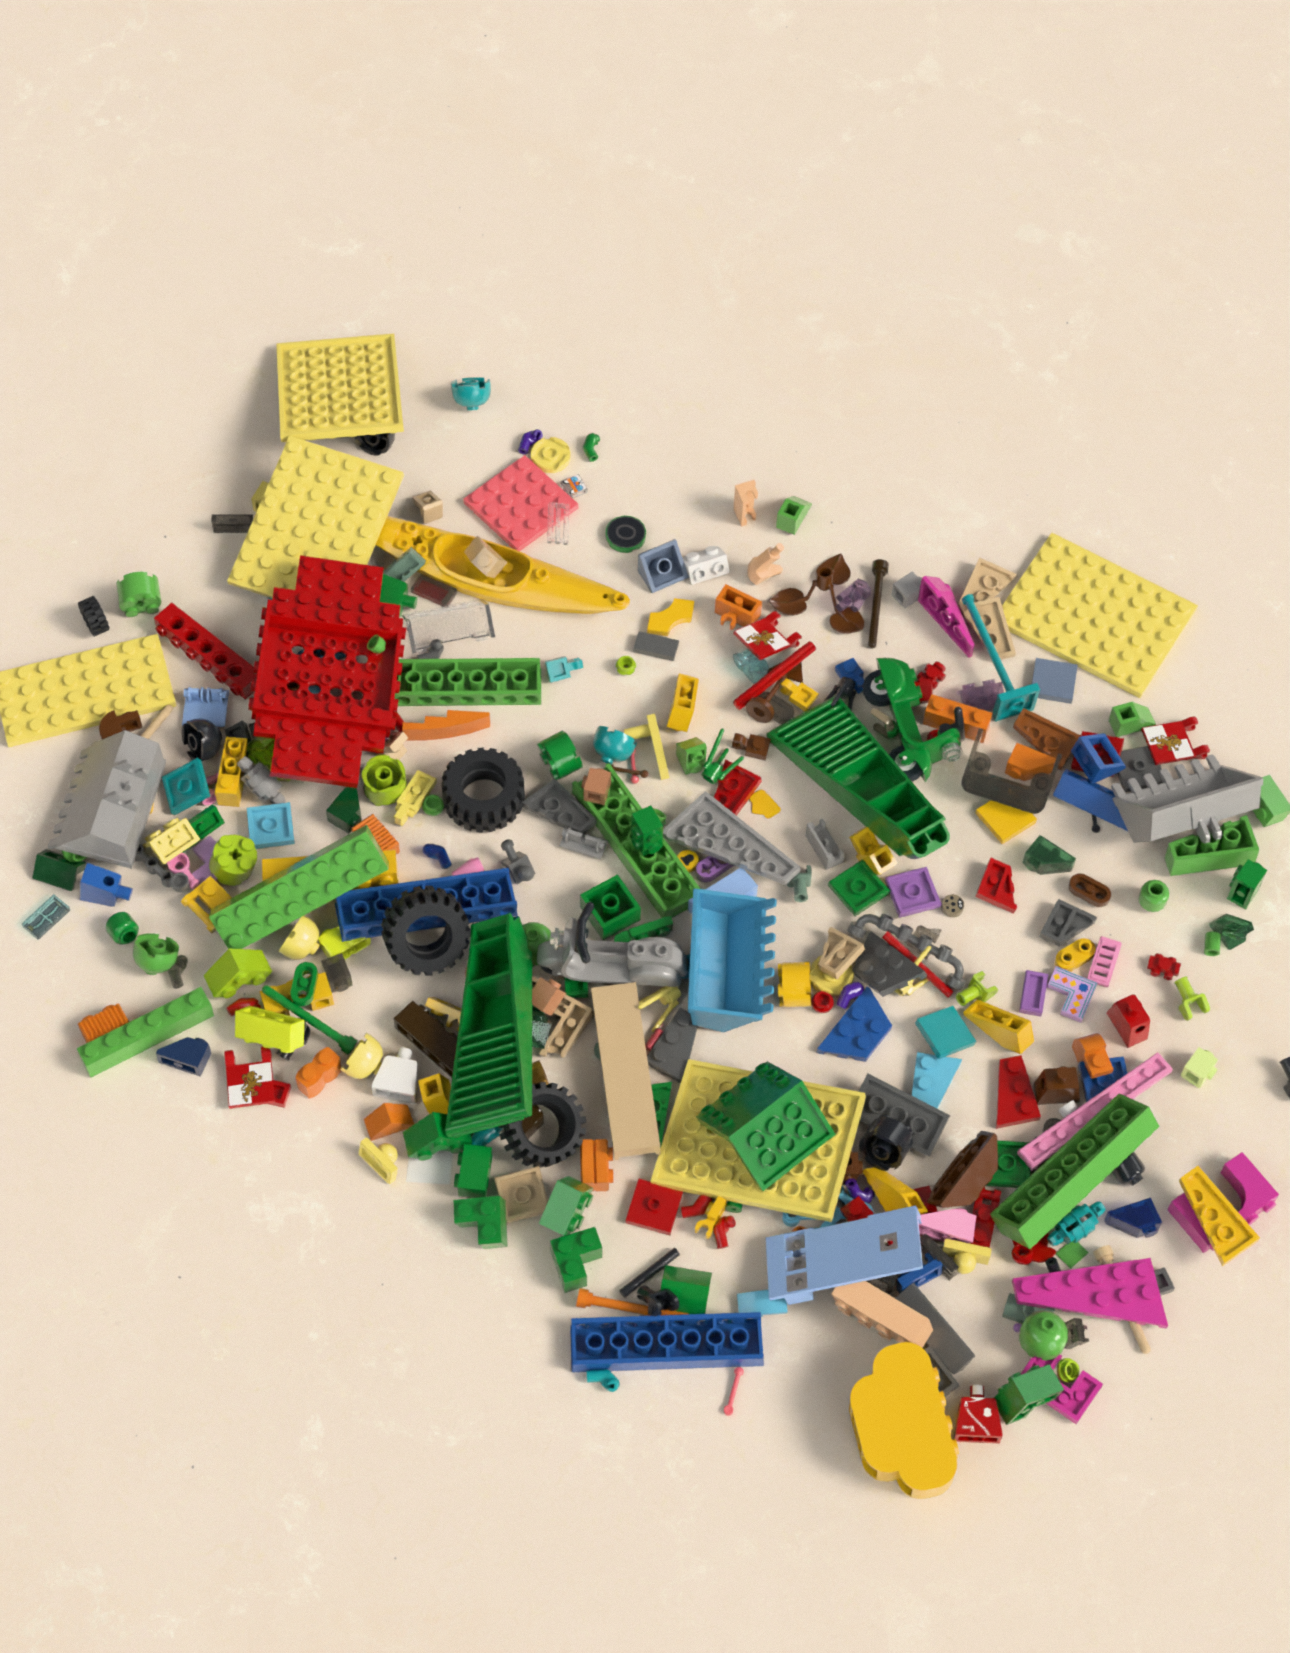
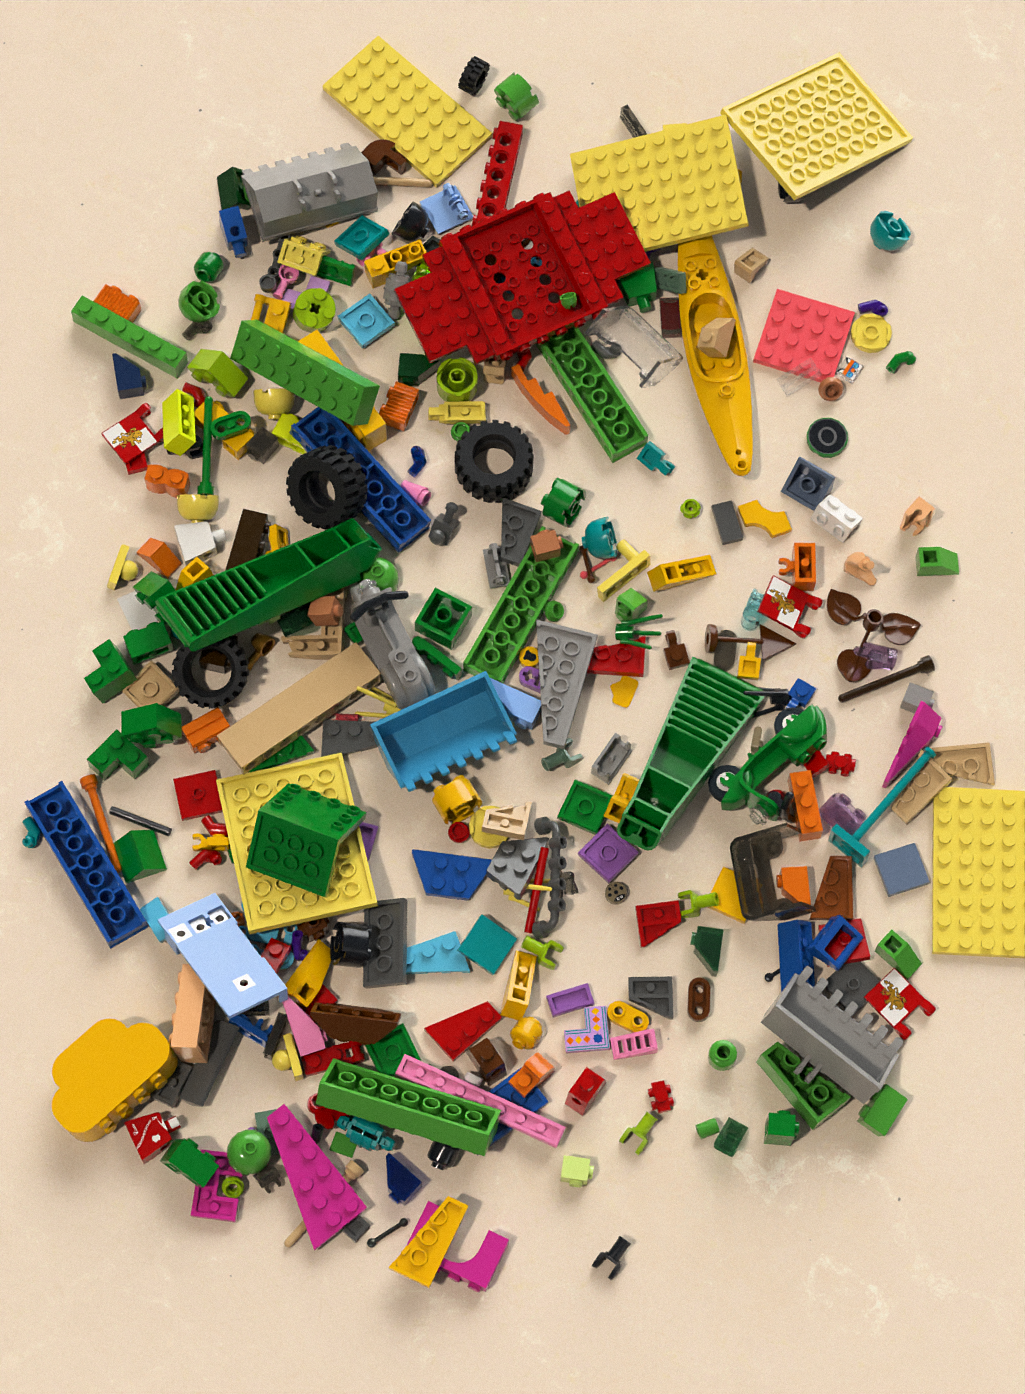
camera: 60 degrees right, 10 degrees up
(46, 917) = (188, 207): clear light blue tile -> none
(584, 507) = (830, 388): none -> nougat hat
(646, 831) = (520, 606): green brick -> none
(658, 1300) = (114, 837): black piece -> none
(728, 1410) = (58, 940): coral hinge -> none
(774, 675) = (753, 632): red axle -> none
(848, 992) = (479, 848): dark purple arm -> none
(1000, 842) = (697, 902): none -> lime piece
(1049, 1042) = (526, 1033): none -> yellow head
(1180, 1276) = (372, 1242): none -> pearl dark grey hinge

